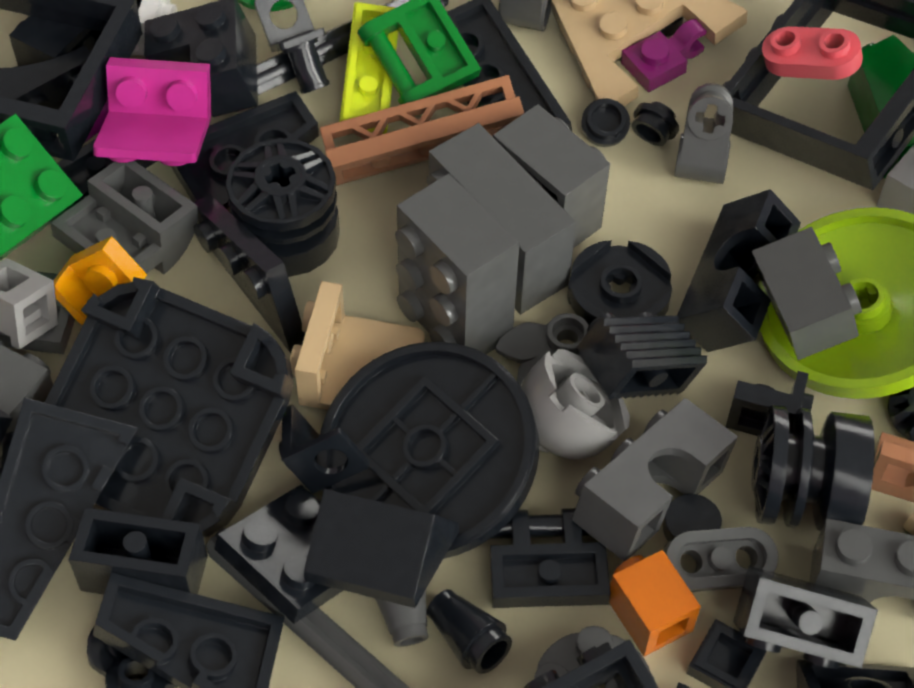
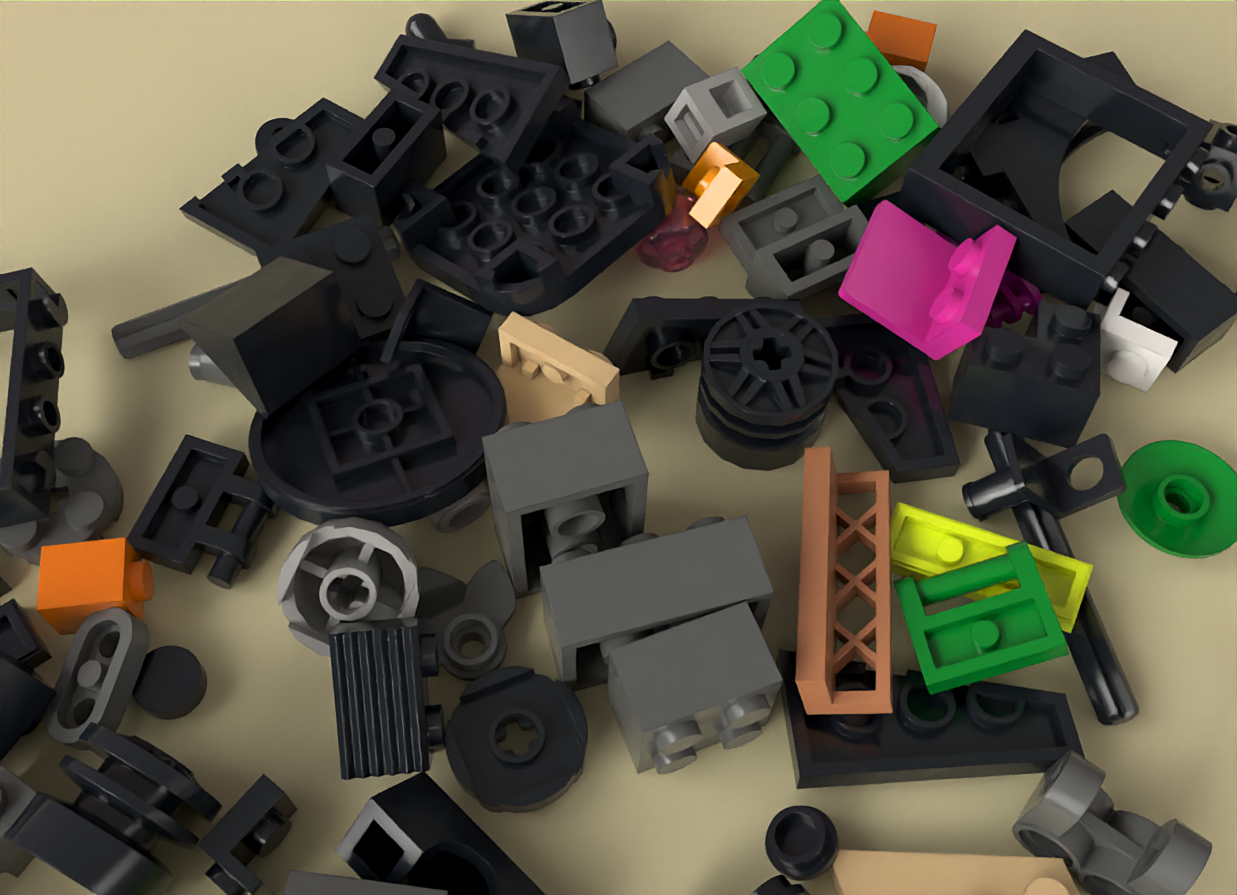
camera: 110 degrees right, 5 degrees up
(470, 632) = (173, 408): black cone -> none
(624, 502) = (249, 694): dark grey arch -> none

